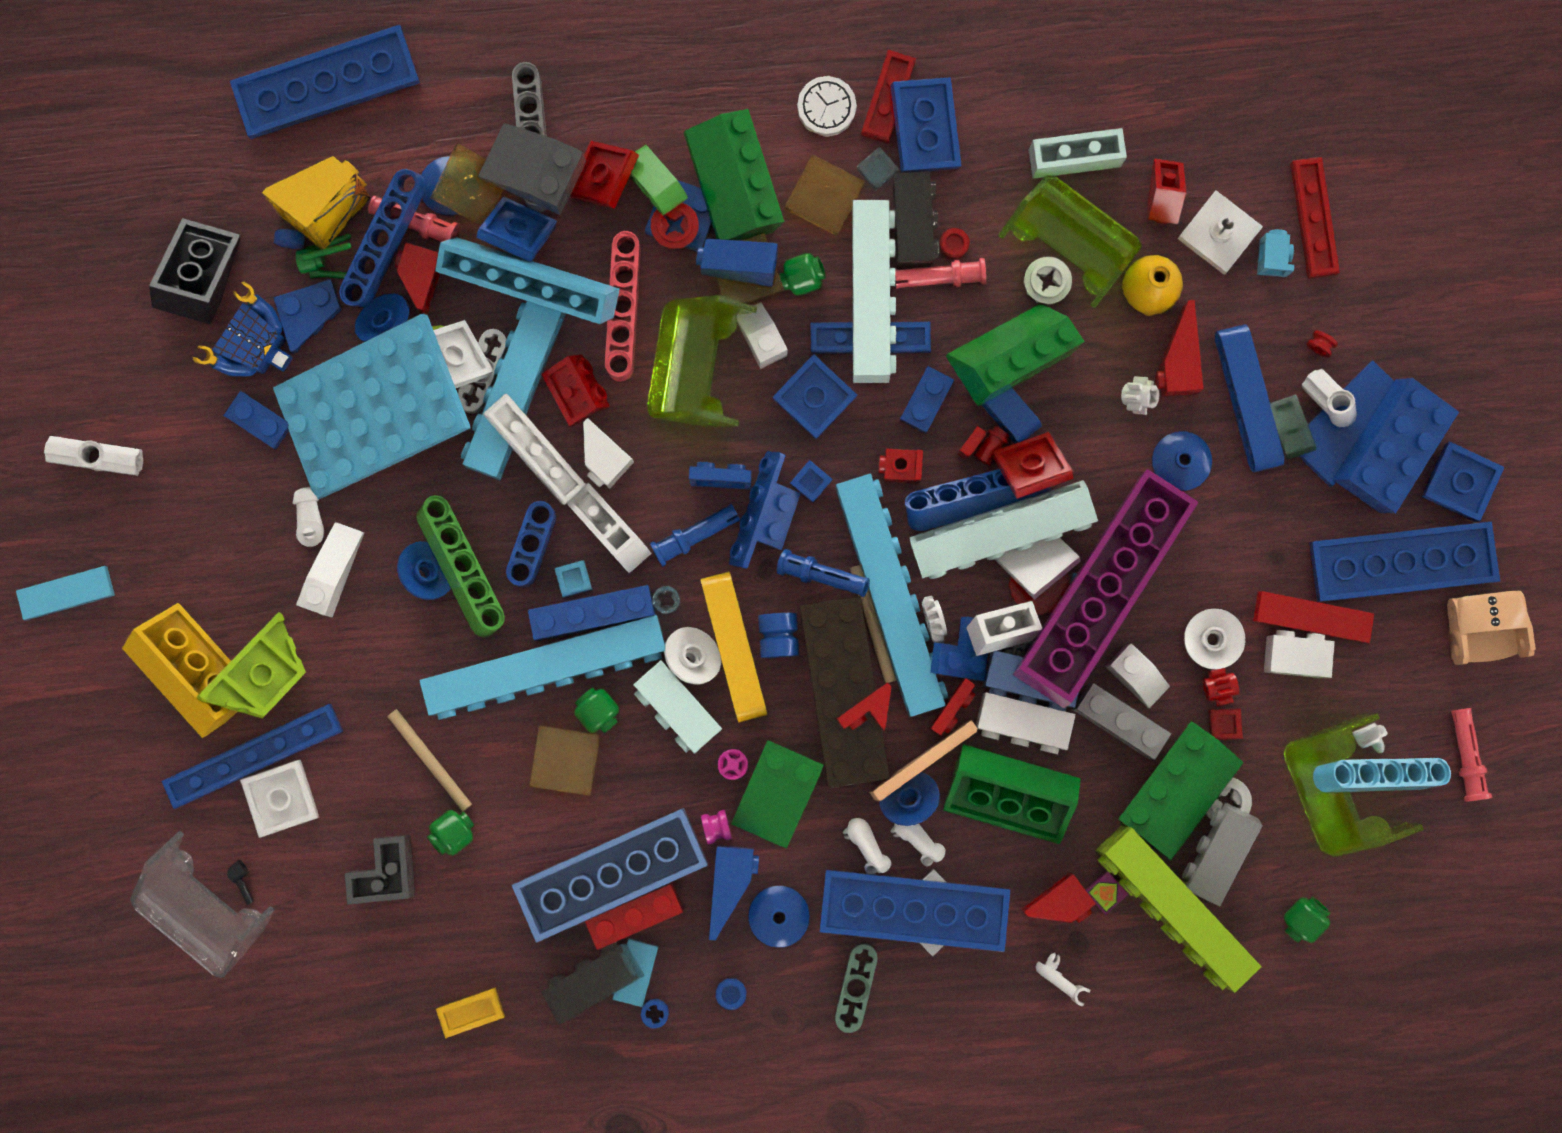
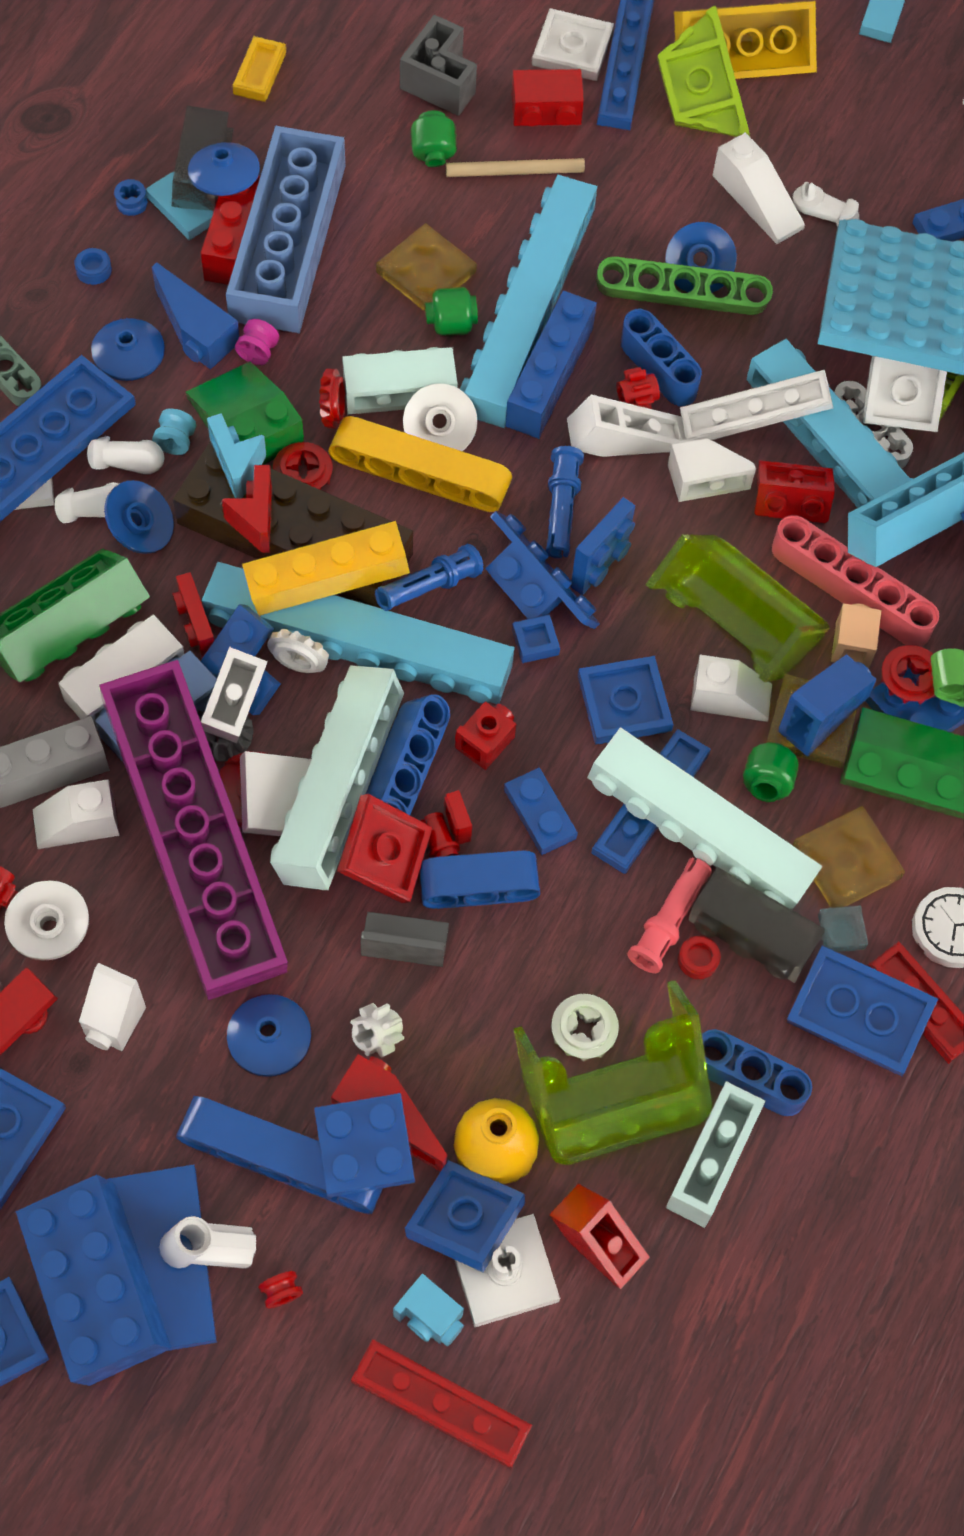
camera: 125 degrees right, 20 degrees down
(352, 777) = (547, 97): none -> red brick
(572, 540) = (638, 388): none -> red gear
(573, 578) = (598, 377): medium azure tile -> none
(605, 934) = (223, 169): none -> blue dish
(663, 281) = (856, 633): none -> light nougat brick
(675, 597) = (511, 448): clear light blue bush -> none
(729, 738) = (332, 398): none -> red gear
(732, 764) = (298, 386): dark pink wheel -> none
(778, 635) = (397, 503): blue wheel -> none
(792, 708) = (315, 458): none -> red gear
(827, 827) = (174, 431): none -> medium azure wheel
(843, 746) = (235, 456): none -> medium azure slope
(879, 631) = (326, 568): none -> yellow brick
(923, 761) = (164, 550): light nougat tile -> none
(1011, 152) = (772, 1070): none -> blue beam
(1014, 352) = (528, 916): green slope -> none
(1070, 421) = (404, 939): none -> dark grey panel
(1212, 269) = (465, 1216): none -> blue plate
(1219, 348) = (364, 1145): none -> blue plate
(1242, 554) = (111, 1008): none -> white slope
(1292, 427) = (210, 1174): clear green plate -> none

